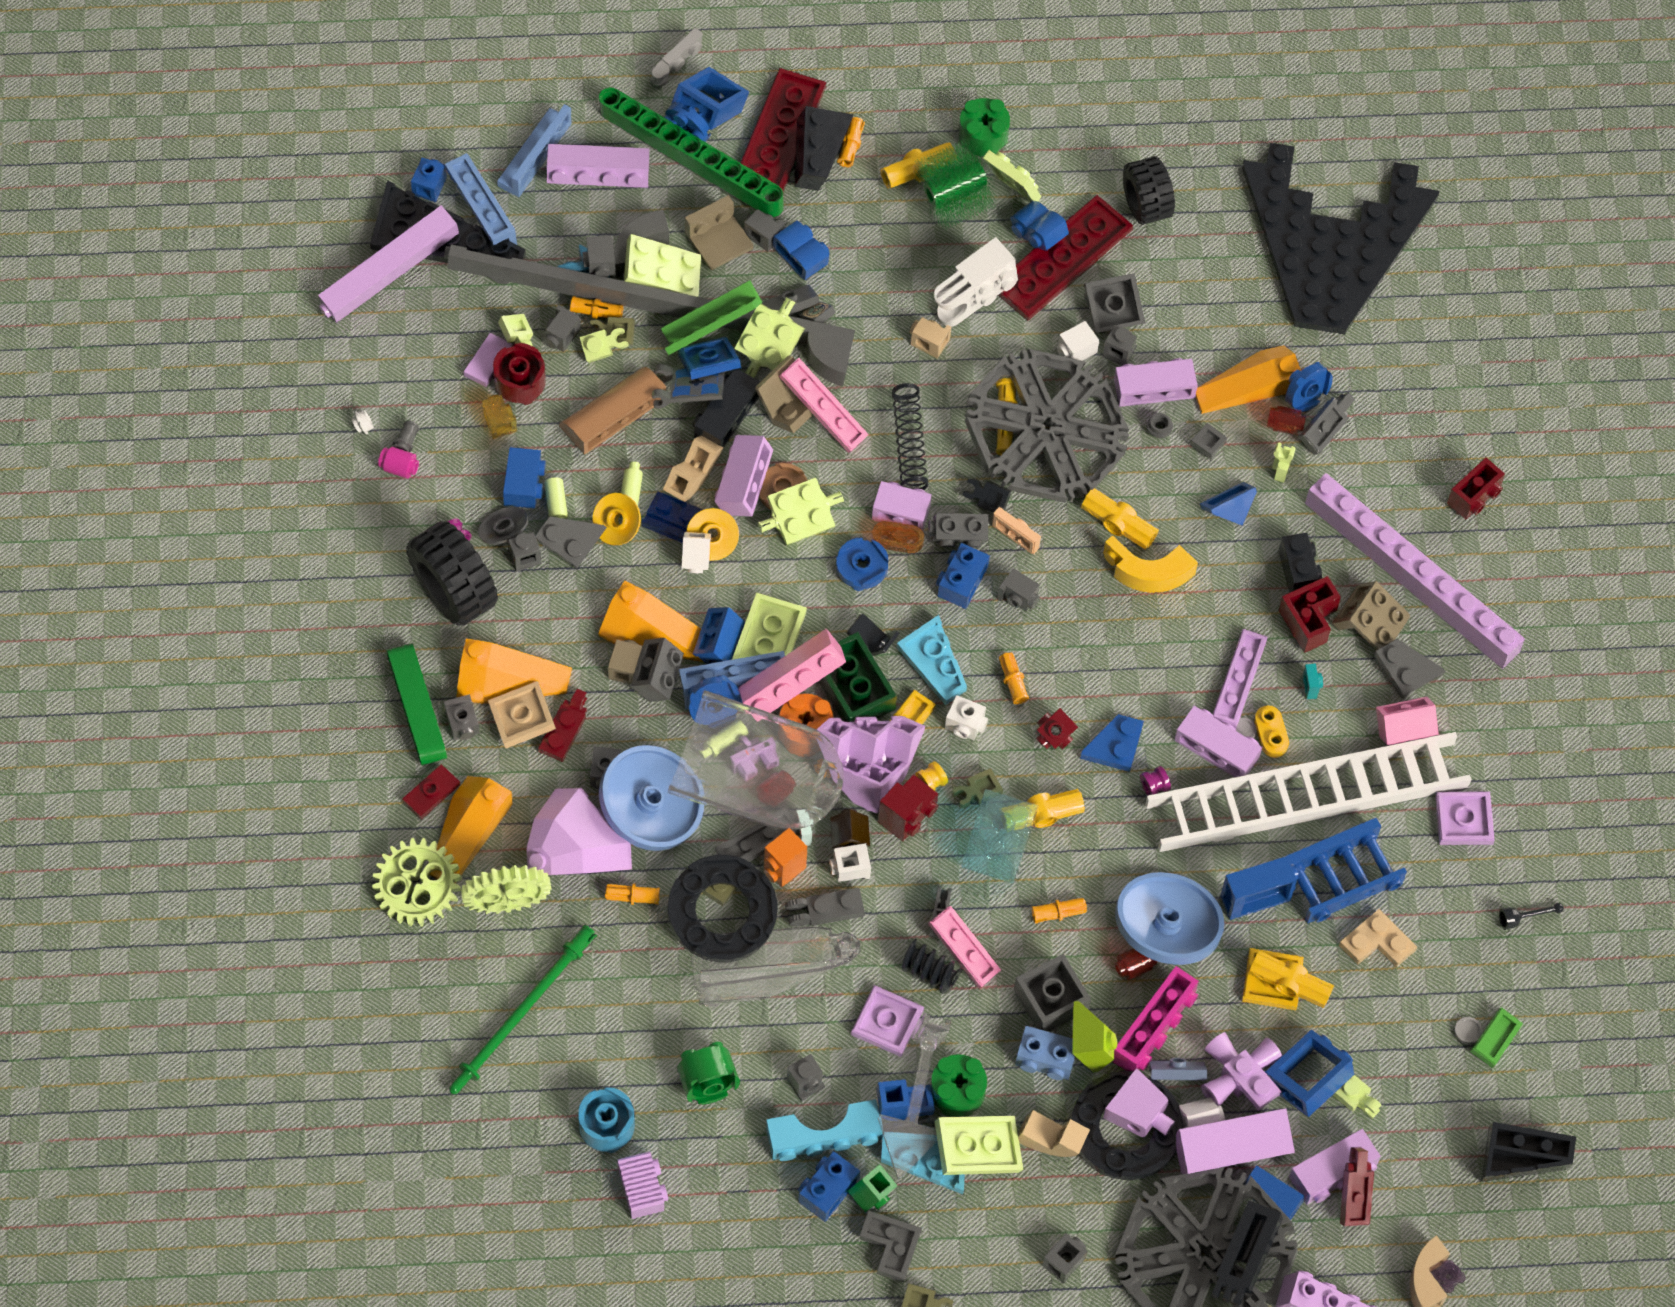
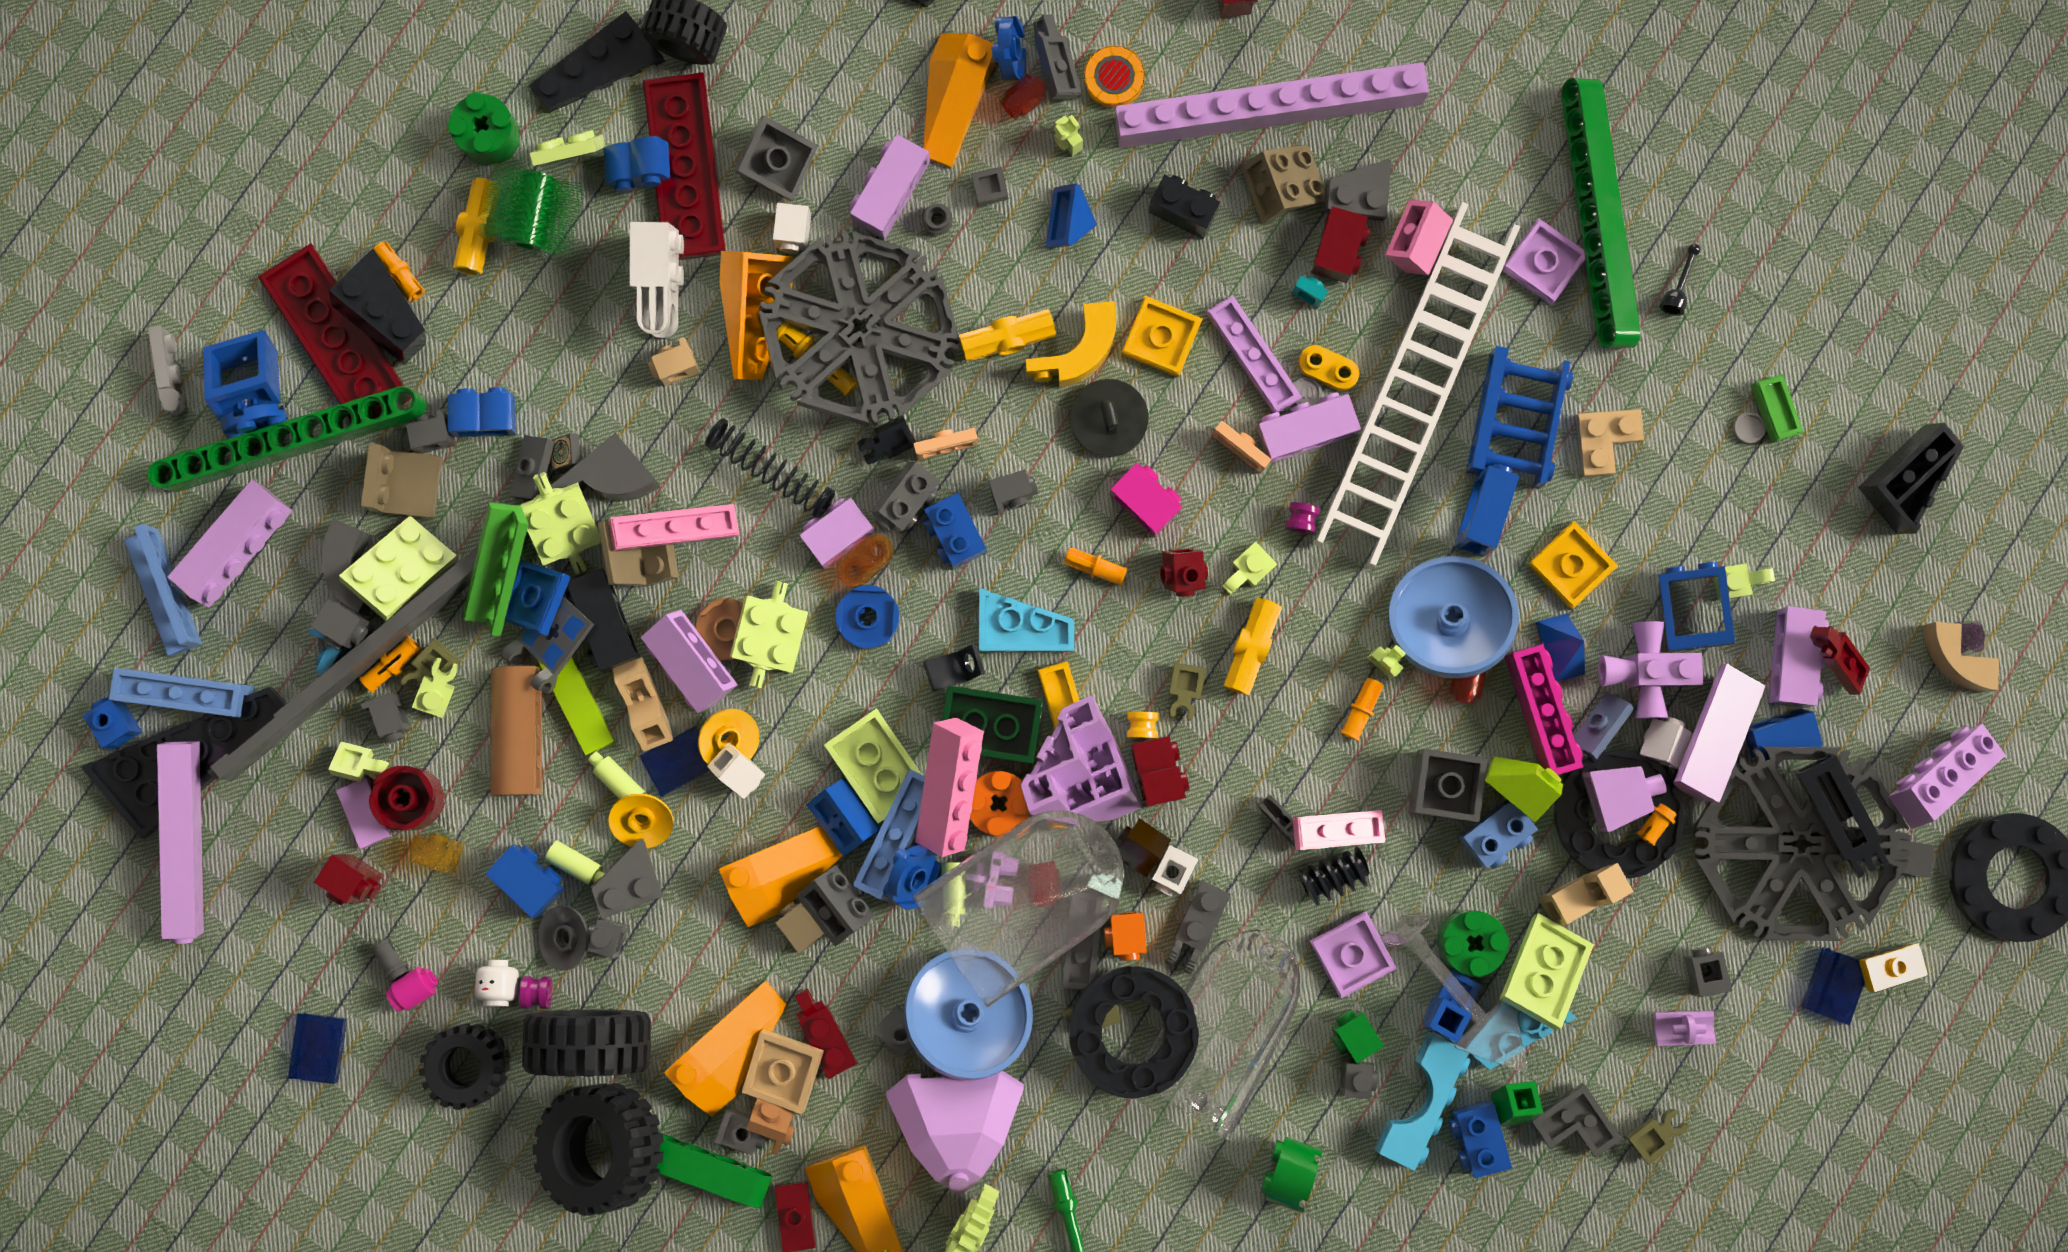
camera: 50 degrees left, 20 degrees up
(315, 436) = (317, 1048): none -> clear blue plate
(362, 422) = (338, 991): white plate -> none
(374, 505) = (438, 1071): none -> black tyre
(393, 652) = (563, 1155): none -> black tyre
(440, 374) = (348, 879): none -> dark red brick
(441, 506) = (496, 984): none -> white head
(485, 730) = (772, 1123): none -> medium nougat bracket
(632, 894) = (1048, 1101): light orange axle -> none
(661, 435) = (581, 709): none -> lime tile
(834, 1056) = (1355, 1036): none -> green brick
(966, 718) = (1106, 645): white brick -> none
(1000, 836) = (1258, 712): clear light blue brick -> none
(1012, 338) = (742, 289): none -> light orange wedge
(1014, 1266) = (1684, 1028): none -> lavender hips
(1083, 162) = (596, 64): none -> black wing
(1083, 676) = (1146, 498): none -> dark pink brick
(1096, 774) = (1250, 567): none -> yellowish green plate
(1105, 899) = (1387, 660): none -> yellowish green plate
(1115, 743) = (1233, 522): blue wing -> none
(1119, 618) = (1109, 418): none -> pearl dark grey shield
(1121, 340) = (826, 189): dark grey brick -> none
(1139, 1146) = (1657, 824): none -> light orange pin
(1171, 711) = (1242, 446): none -> light nougat plate
(1202, 614) = (1161, 336): none -> yellow tile
(1209, 1011) = (1564, 646): none -> blue slope
(1291, 979) = (1596, 553): yellow piece -> none
(1305, 612) = (1240, 244): dark red brick -> none
(1349, 465) = (1114, 76): none -> tile
(1358, 676) = (1340, 244): none -> dark red brick
(1526, 826) = (1600, 213): none -> green beam

